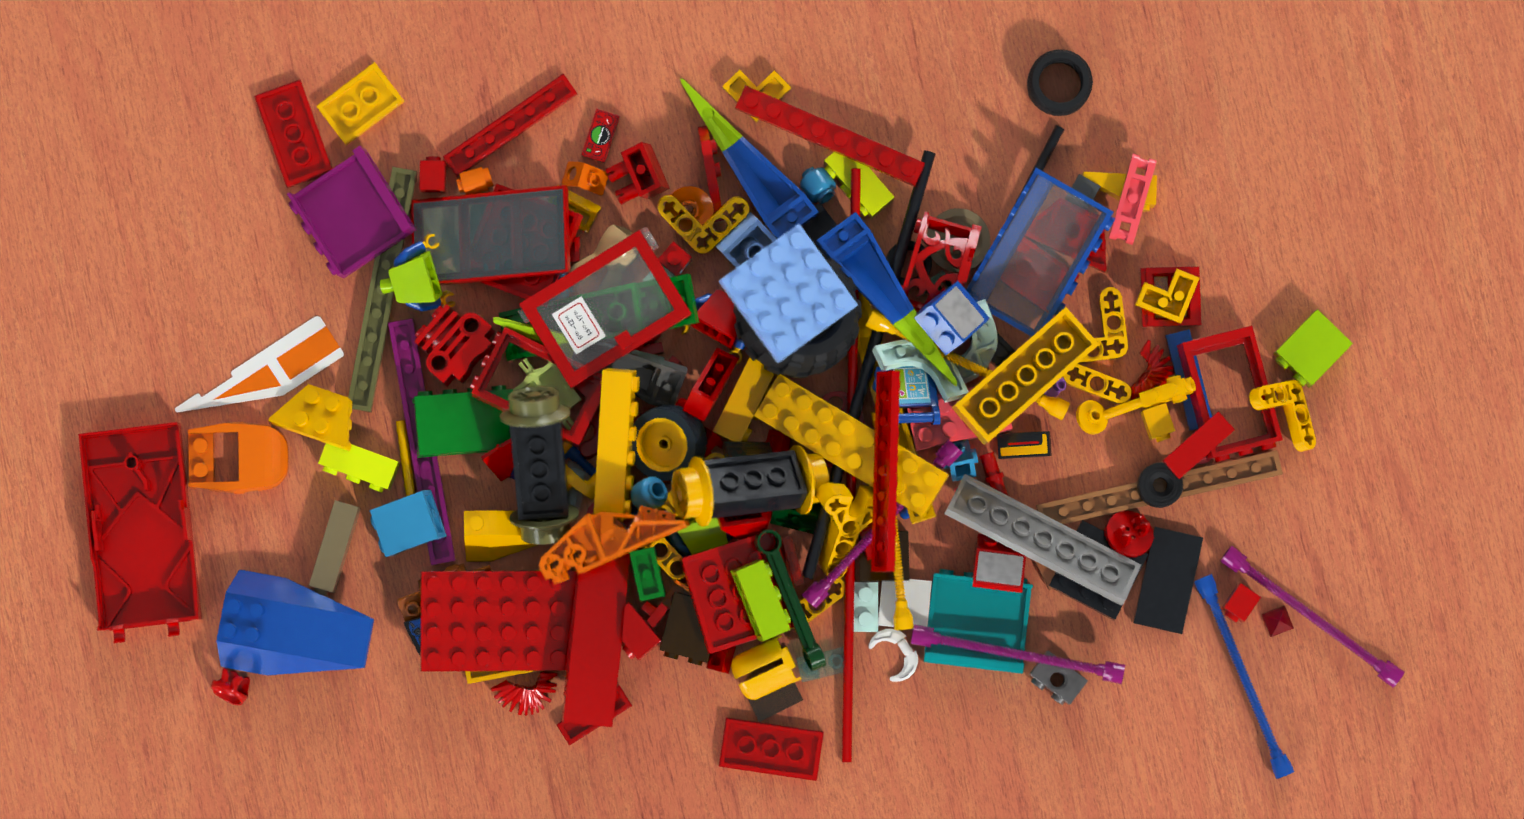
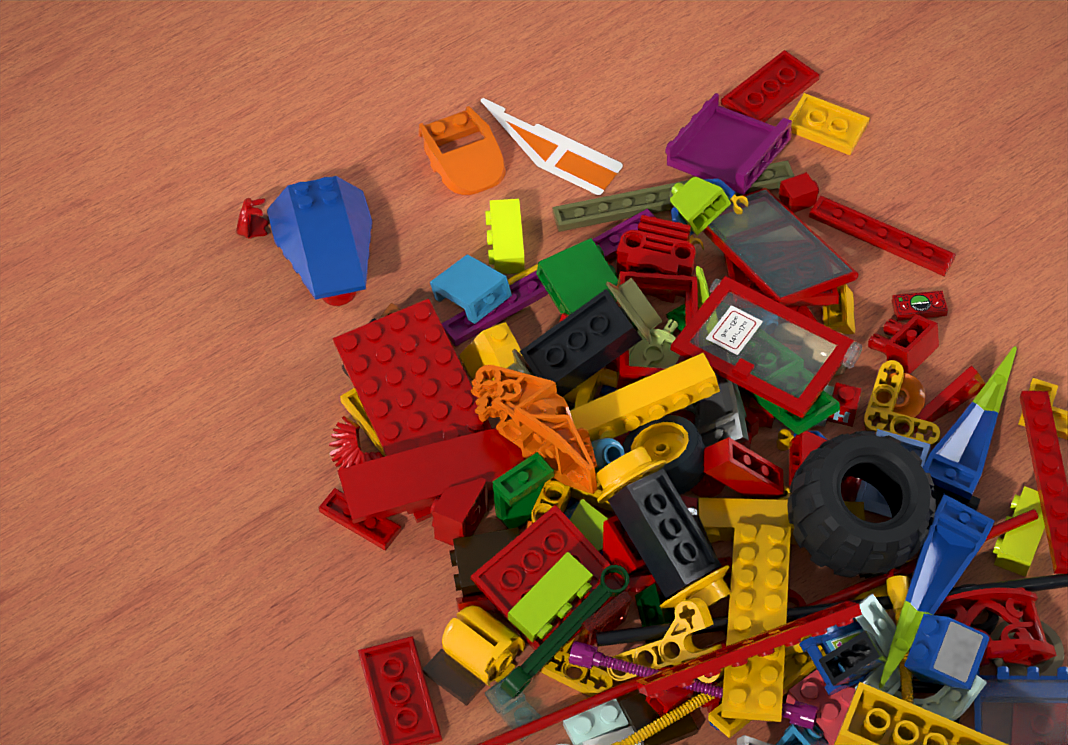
camera: 65 degrees right, 30 degrees down
(140, 528) = (363, 105): red piece -> none
(317, 415) = (532, 187): yellow wing -> none
(334, 548) = (418, 247): dark tan brick -> none
(474, 181) = (816, 222): orange brick -> none
(586, 177) = (874, 309): orange bracket -> none
(656, 614) = (488, 523): red tile -> none
(788, 293) = (878, 462): light blue plate -> none
(817, 185) = (995, 496): dark azure head -> none
(932, 387) = (856, 657): none -> black torso

